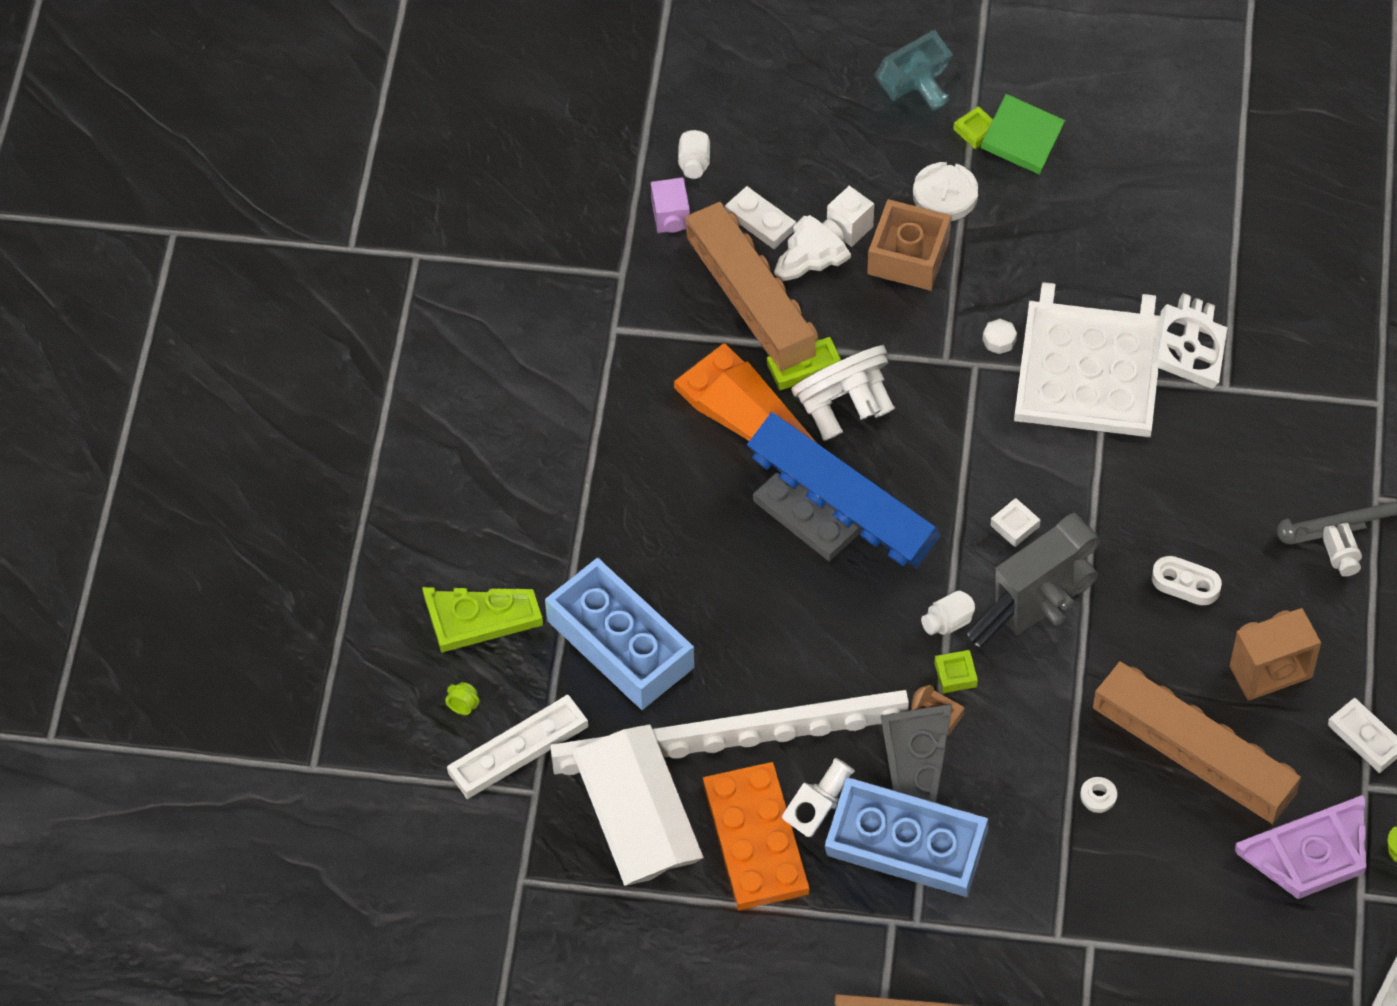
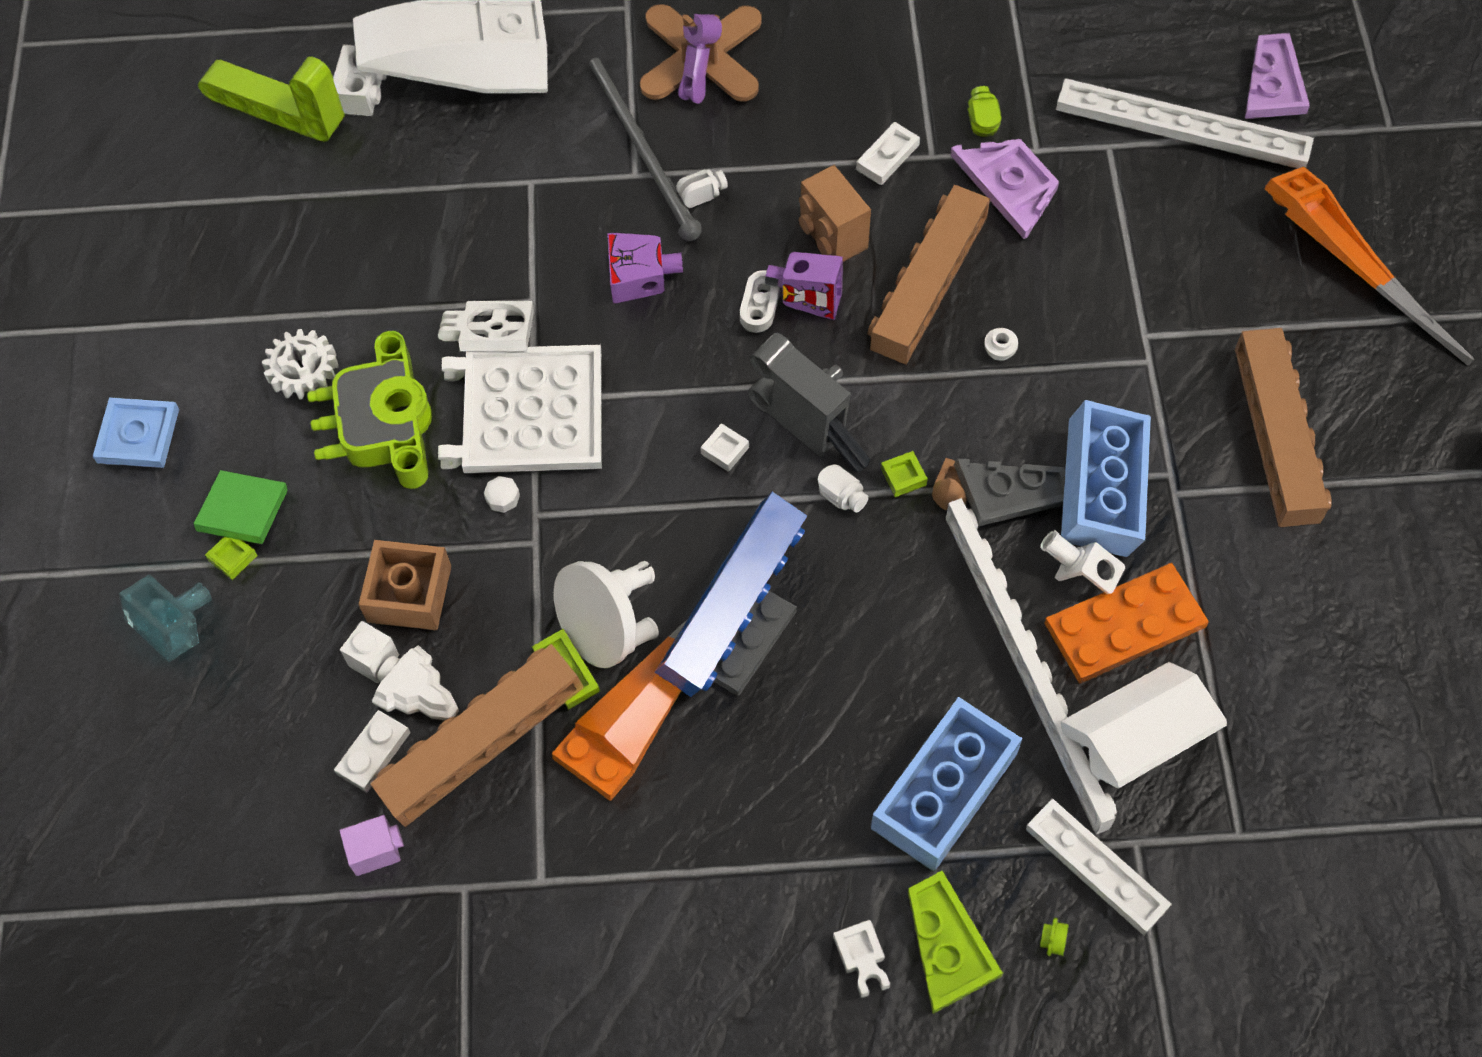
camera: 100 degrees left, 5 degrees up
(489, 546) = (861, 952): none -> white plate
(694, 153) = (292, 834): white arm -> none
(946, 189) = (319, 572): white tile -> none
(1109, 232) = (366, 417): none -> lime piece
(1117, 59) = (136, 432): none -> light blue plate
(1171, 185) = (284, 371): none -> white gear
(1194, 611) = (809, 282): none -> medium lavender torso
(1245, 475) = (639, 266): none -> medium lavender torso

